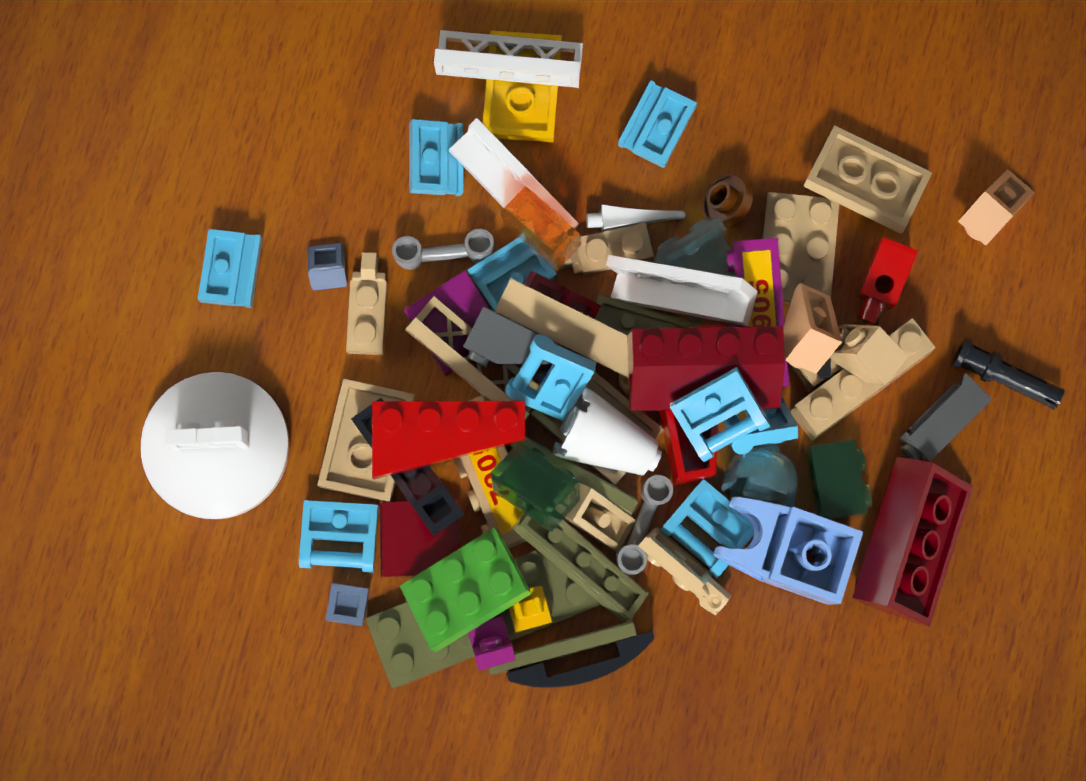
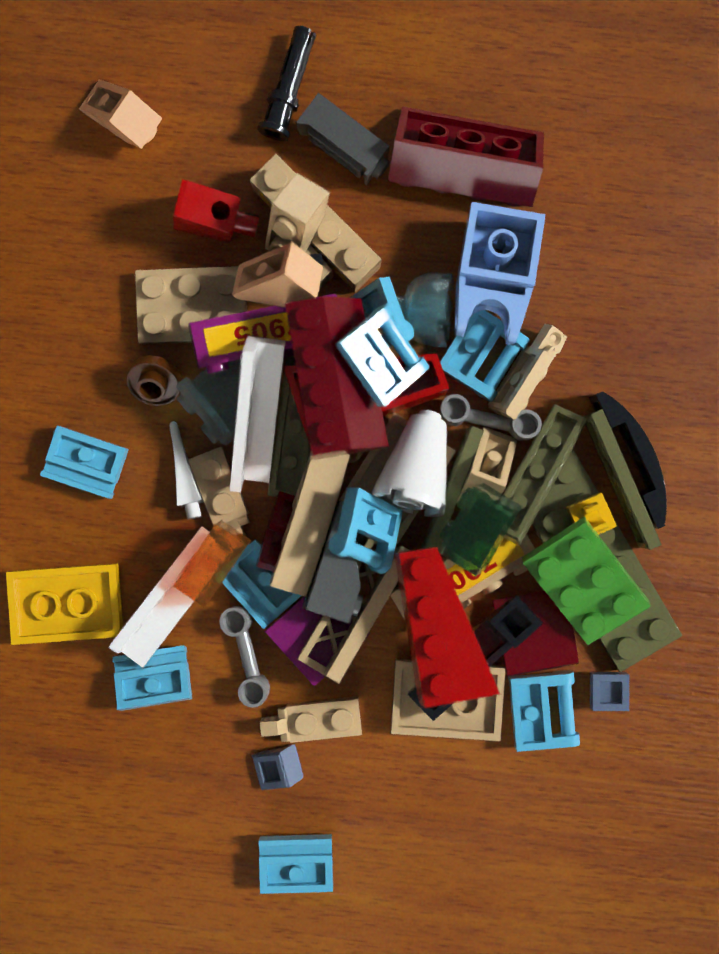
camera: 105 degrees left, 10 degrees up
(215, 445) = (474, 847): white bracket -> none
(491, 643) = (638, 546): magenta bracket -> none
(508, 66) = (47, 621): white fence -> none
(838, 480) = (419, 235): clear green brick -> none
(868, 179) = (111, 243): tan plate -> none

